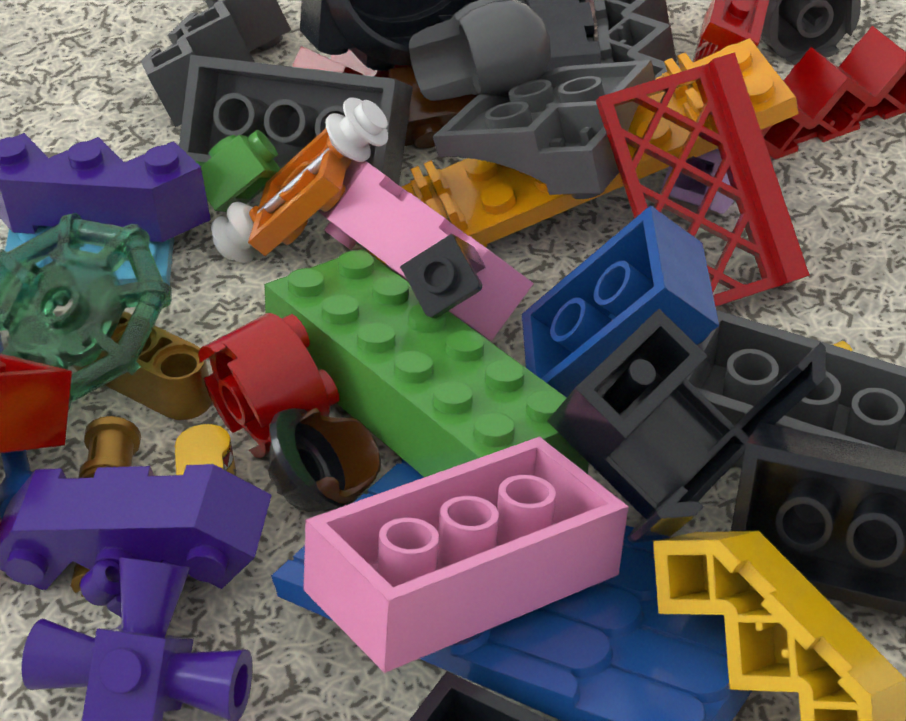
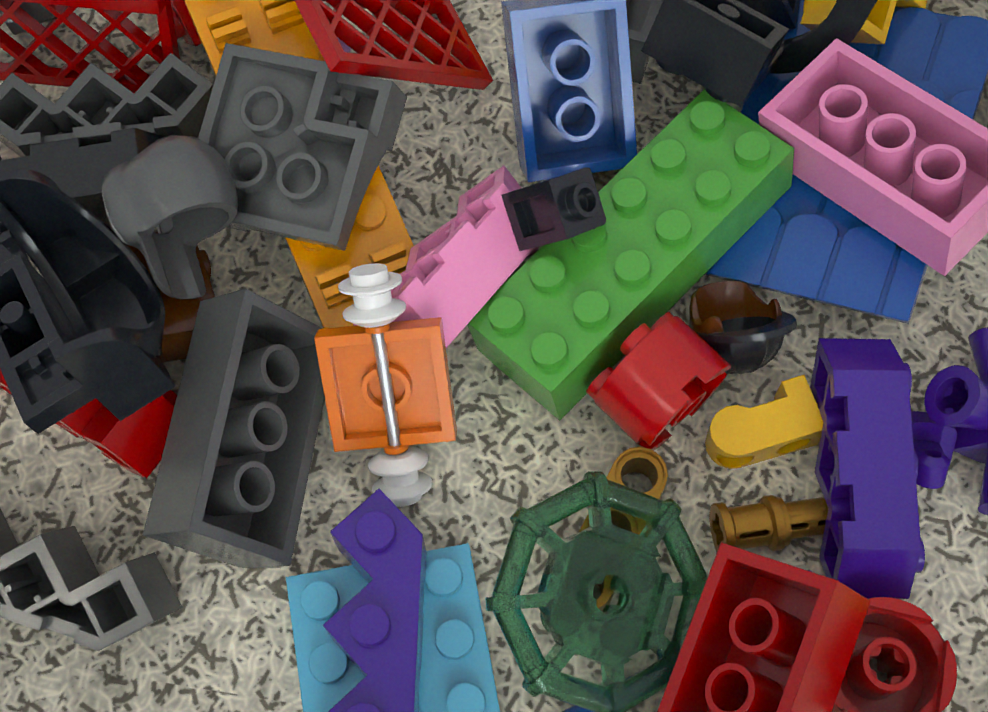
camera: 100 degrees left, 25 degrees up
(238, 169) = (328, 478): bright green brick -> none

